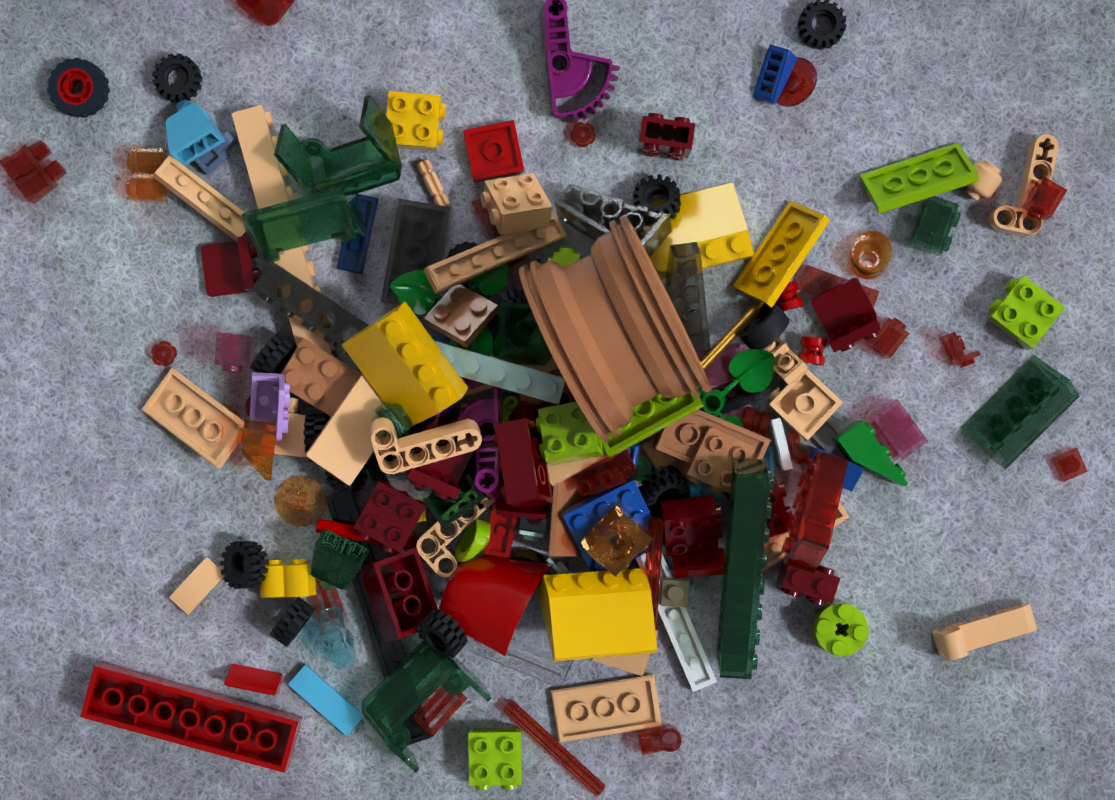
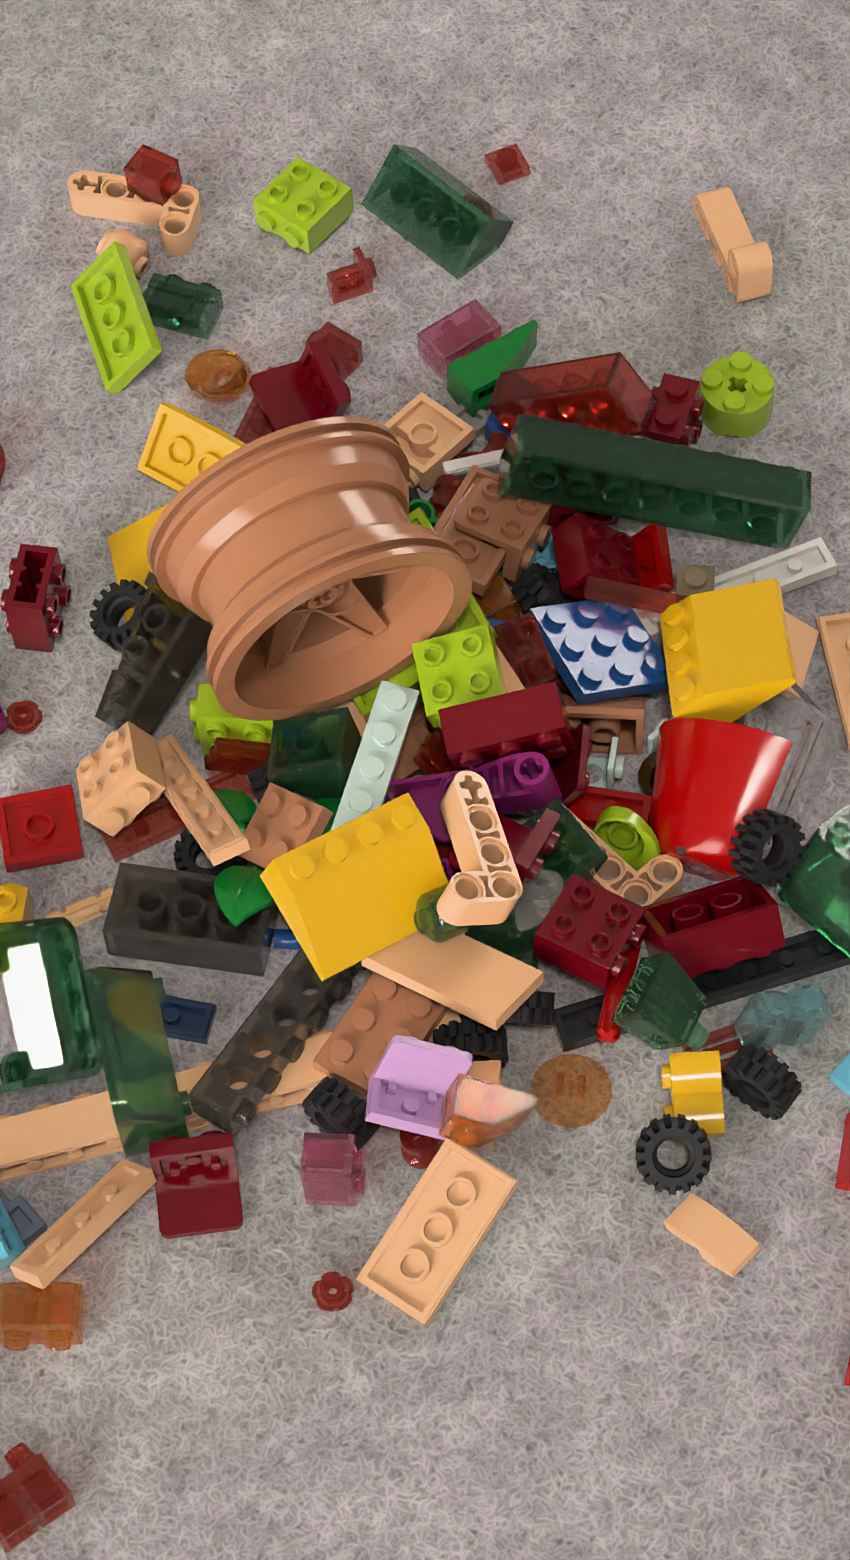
camera: 85 degrees left, 30 degrees down
(616, 554) = (617, 628): clear orange brick -> none

